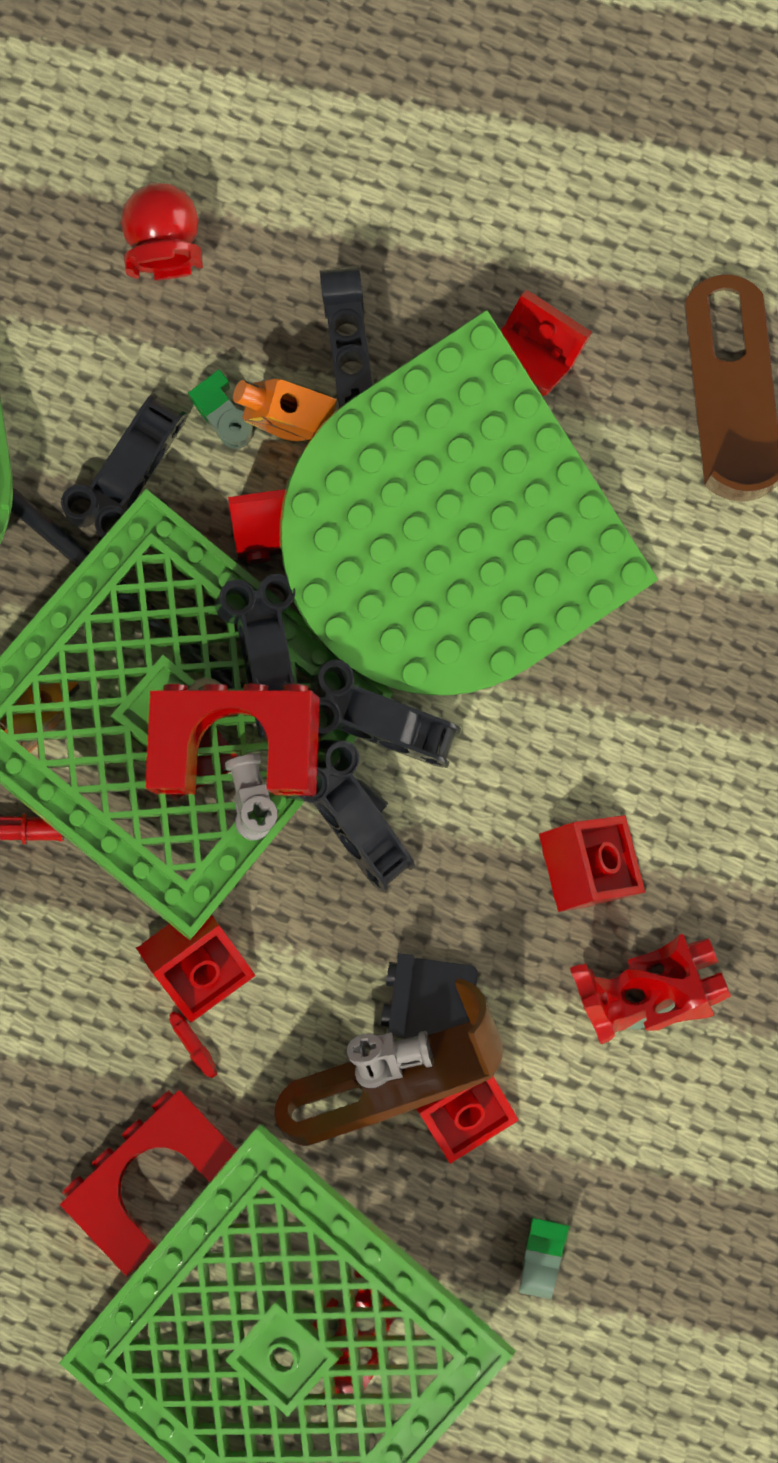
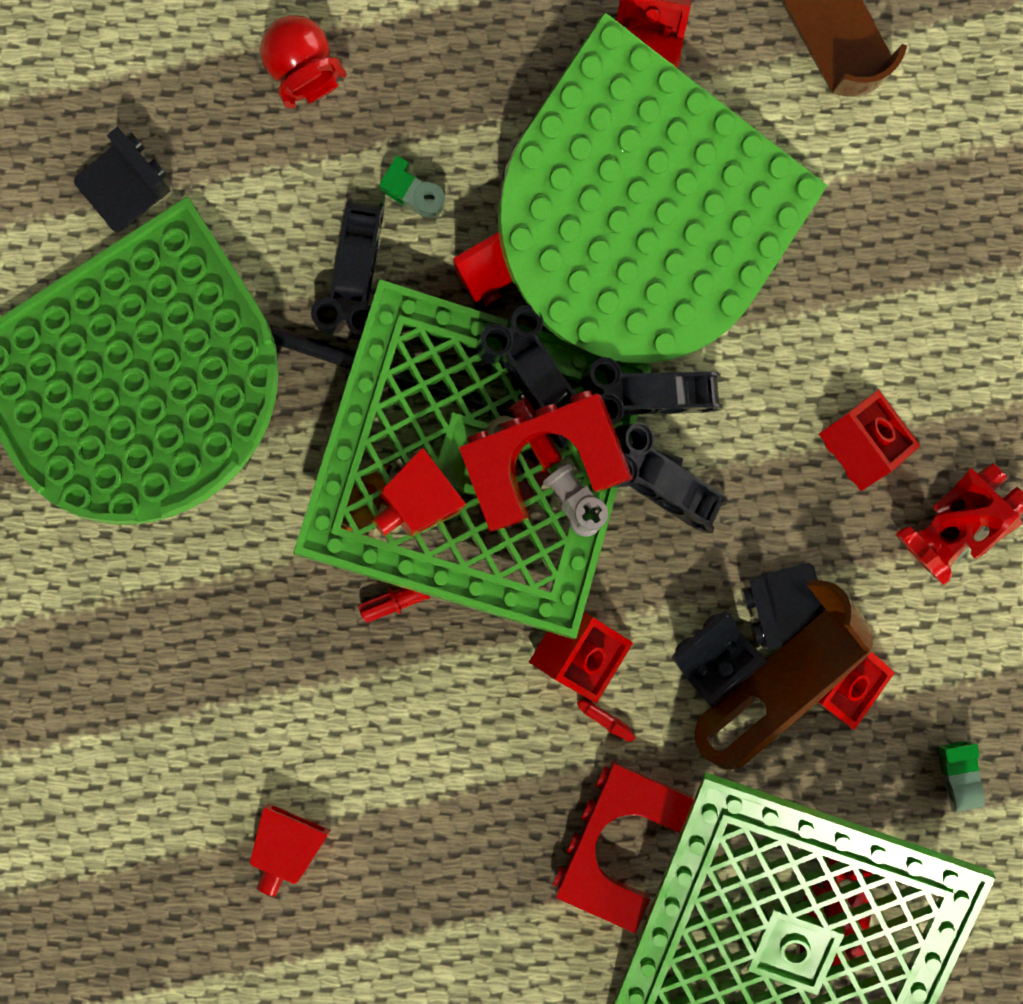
camera: 25 degrees left, 5 degrees up
(86, 725) = (417, 498): none -> red torso
(240, 725) = (541, 445): none -> red axle
(283, 408) = (466, 165): orange torso -> none
(328, 1019) = (717, 658): none -> black bracket
(344, 305) = (475, 58): black piece -> none
(387, 1056) = (775, 668): light grey connector -> none

